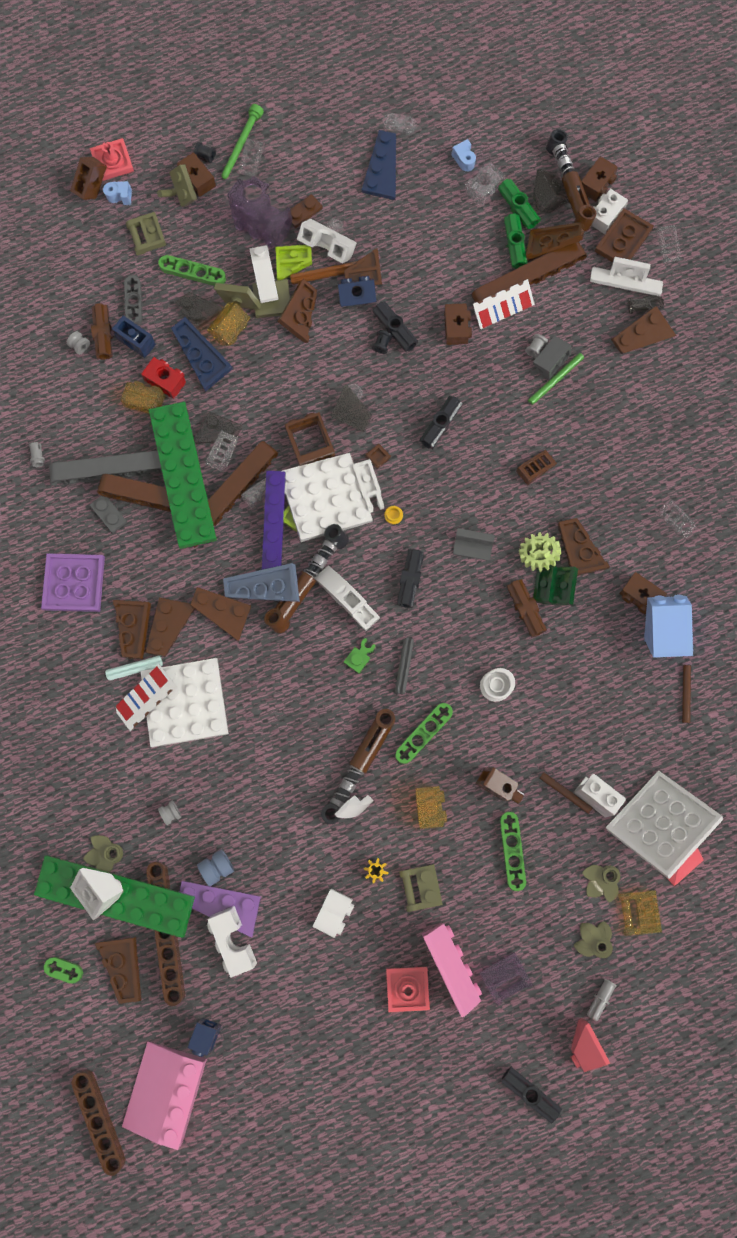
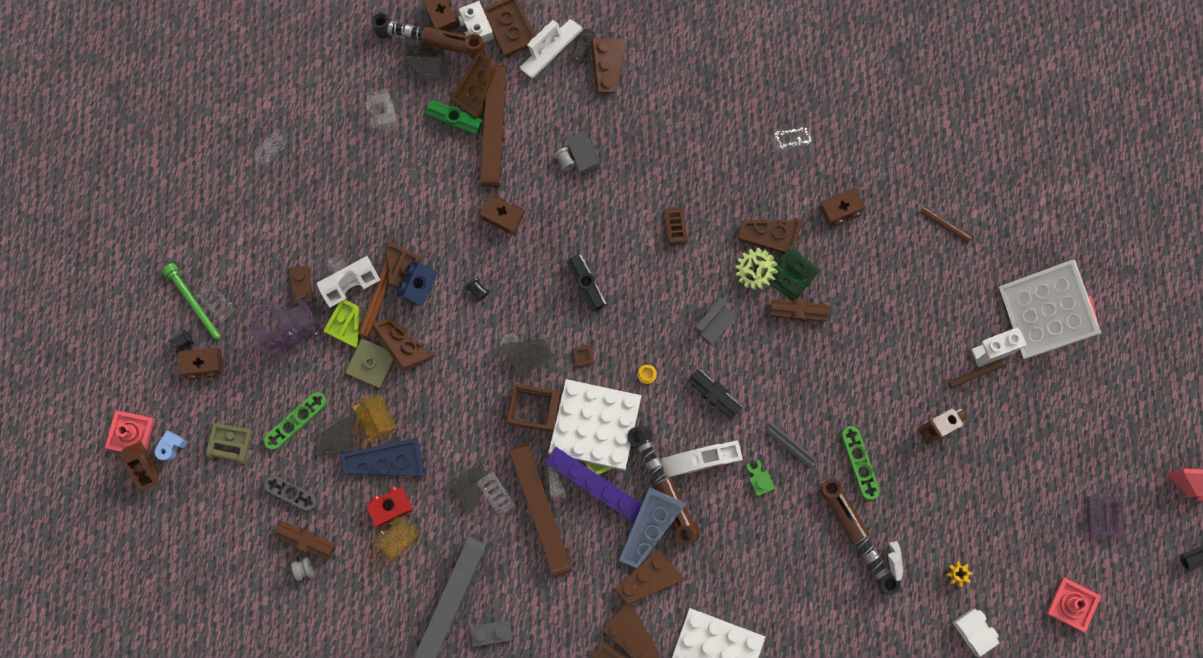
camera: 60 degrees left, 0 degrees up
(133, 336) = (331, 512): dark blue brick -> none
(134, 492) = (494, 589): reddish brown beam -> none
(182, 186) = (204, 382): olive plate -> none
(182, 475) = (500, 542): green plate -> none
(238, 294) = (355, 393): olive plate -> none
(264, 274) = (345, 357): white slope -> none
(368, 483) = (605, 379): white hinge -> none
(381, 172) = (307, 192): dark blue wing -> none
(400, 334) = (457, 270): black piece -> none
(427, 886) = (994, 537): olive plate -> none
(430, 807) = (930, 495): clear yellow brick -> none
(453, 971) = (1078, 556): bright pink slope -> none
(463, 155) = (342, 112): light blue leg -> none
(497, 684) = (852, 375): white piece -> none
(503, 304) = (508, 163): white sticker -> none
(513, 851) = (1001, 450): bright green beam -> none
(514, 197) = (408, 93): green piece -> none
(554, 380) = (604, 161): bright green bar -> none
(592, 938) = (1109, 424): olive plate -> none
(599, 884) = (1067, 391): olive plate -> none
(601, 1000) = (1163, 448): light grey axle -> none
(646, 910) = (1109, 367): clear yellow plate -> none
(669, 626) = (886, 203): light blue slope -> none

